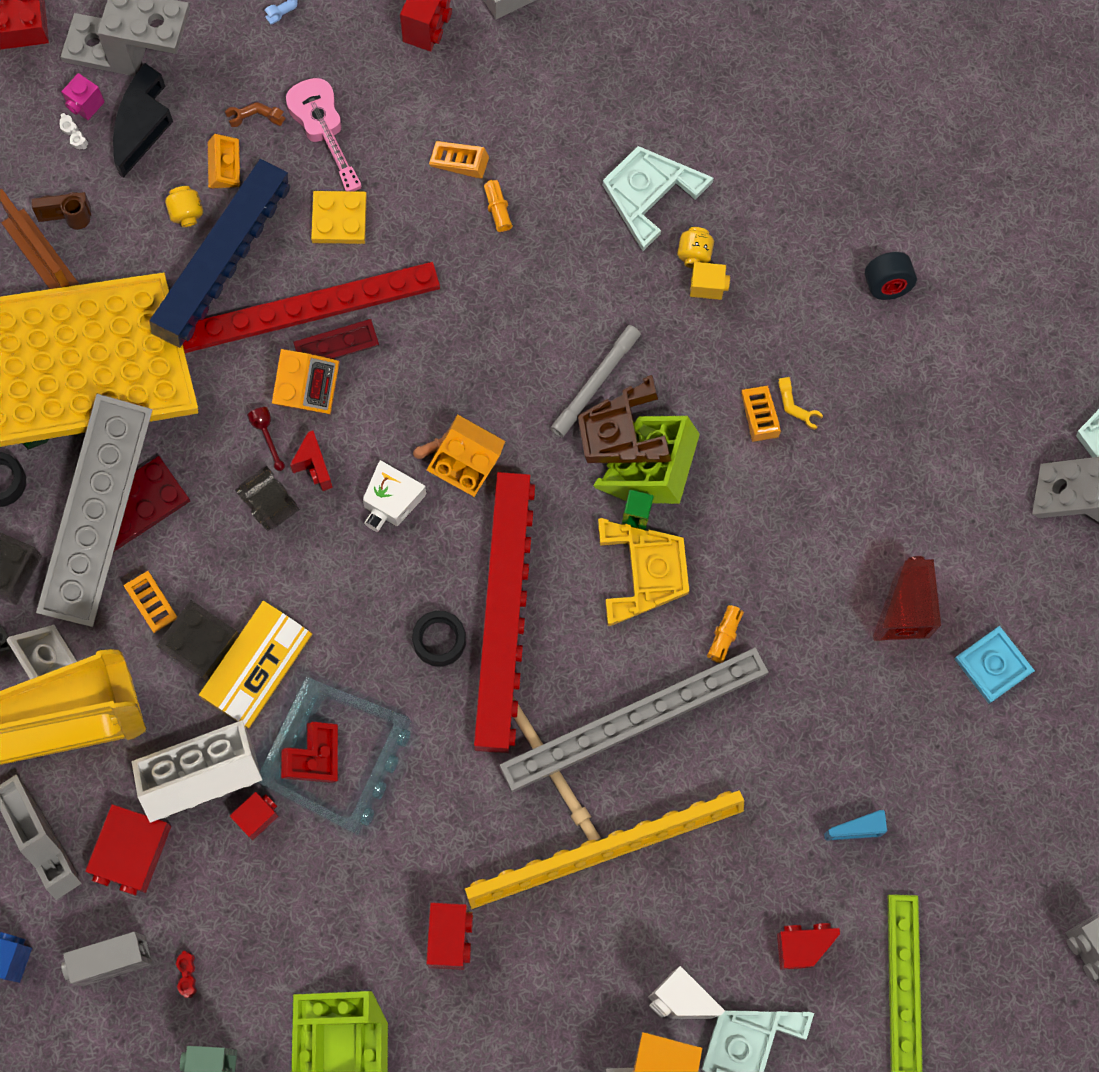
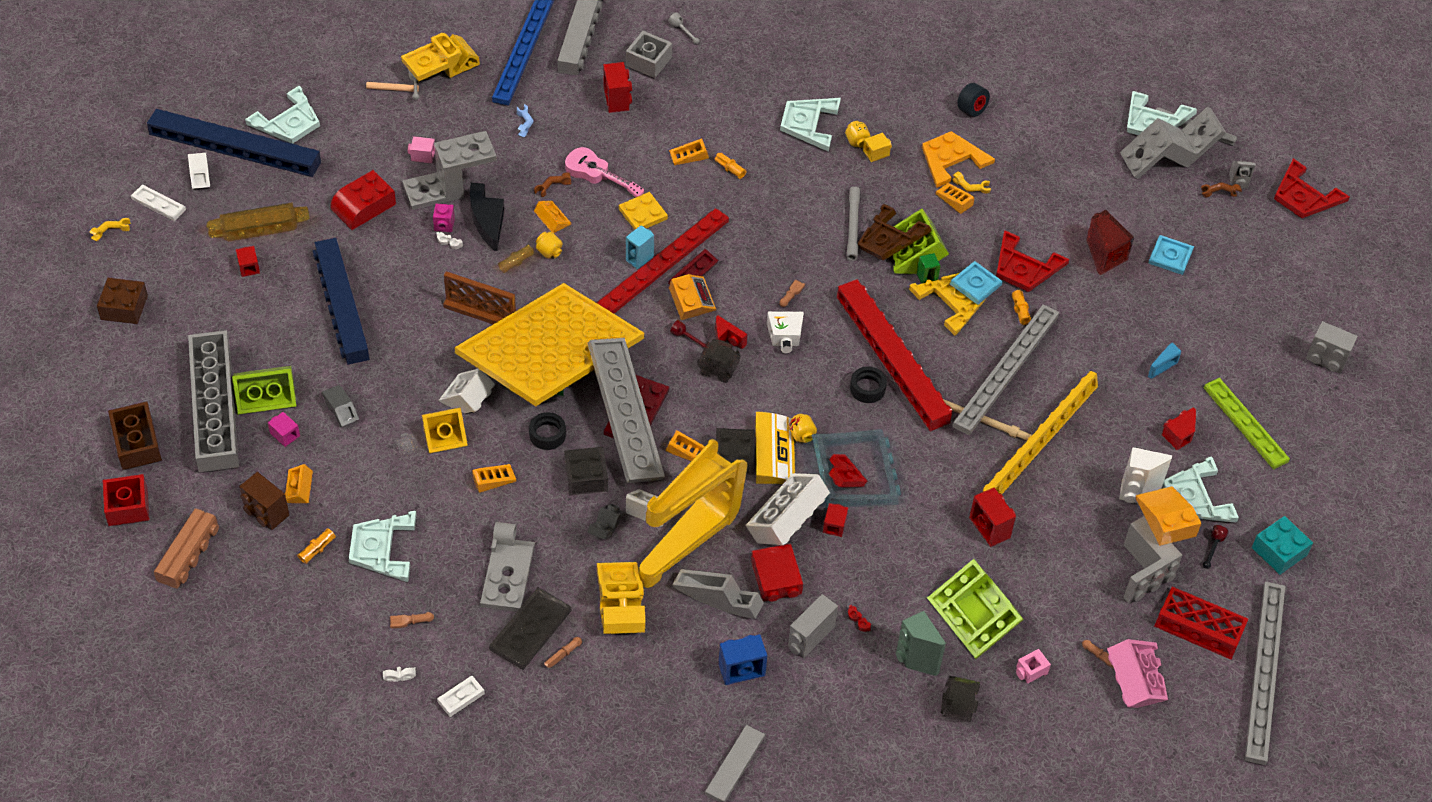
camera: 30 degrees left, 20 degrees down
(63, 207) = (482, 274): reddish brown plate -> none
(132, 203) = (516, 258): none -> clear yellow pin
(219, 254) = (592, 255): dark blue brick -> none
(287, 273) = (639, 247): none -> medium azure brick
(306, 657) = (802, 428): none -> yellow head
(466, 455) = (813, 289): light orange slope -> none
(686, 566) = (976, 282): none -> medium azure tile
(768, 575) = (1022, 269): none -> red wing
(802, 335) = (948, 151): none -> light orange wing

